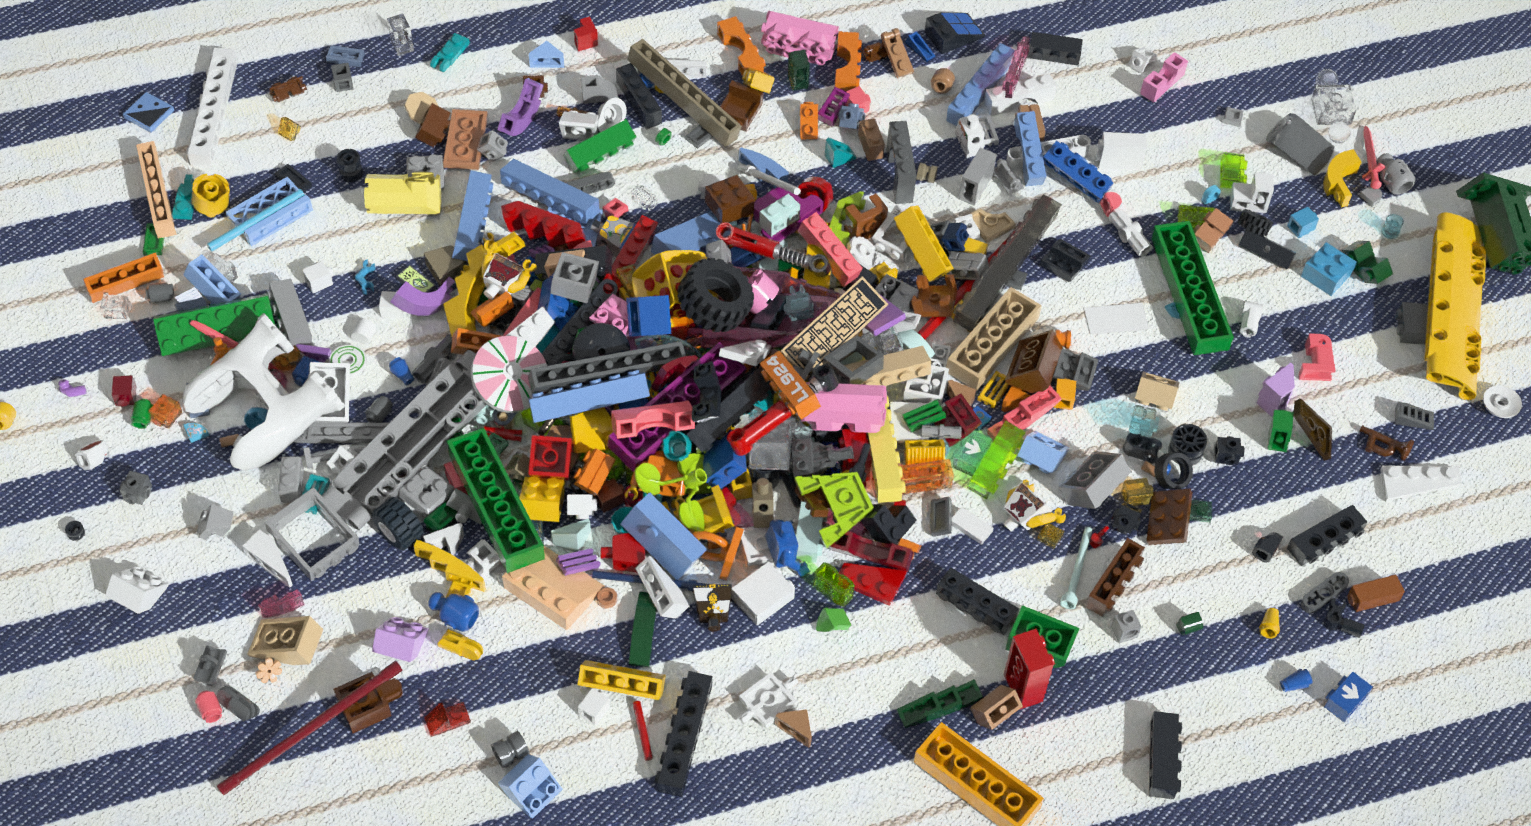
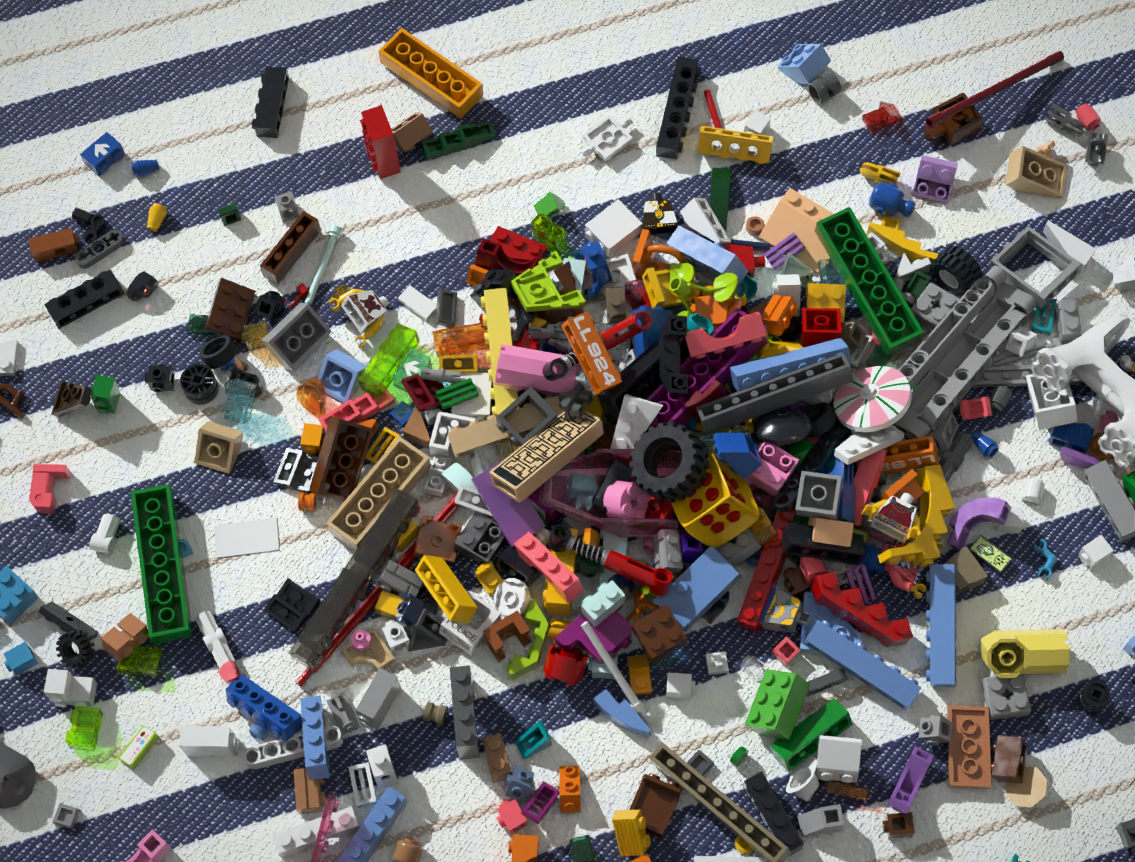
camera: 175 degrees left, 10 degrees up
(274, 607) = (1050, 204): clear pink slope -> none
(353, 353) = (1045, 447): white tile -> none
(400, 398) = (975, 408): none -> coral bracket
(627, 161) = (777, 704): none -> bright green brick
(677, 206) = (717, 663): none -> white tile
(796, 725) = (583, 116): medium nougat slope -> none
(977, 601) = (419, 227): black brick -> none
(998, 226) = (361, 640): none -> bright pink tile
(1057, 634) = (364, 190): green brick -> none
(1070, 433) = (312, 397): none -> clear orange piece
(1182, 159) = (138, 747): none -> slope
(1211, 194) = (115, 695): medium azure tile -> none
(1277, 390) = (96, 440): lavender slope -> none

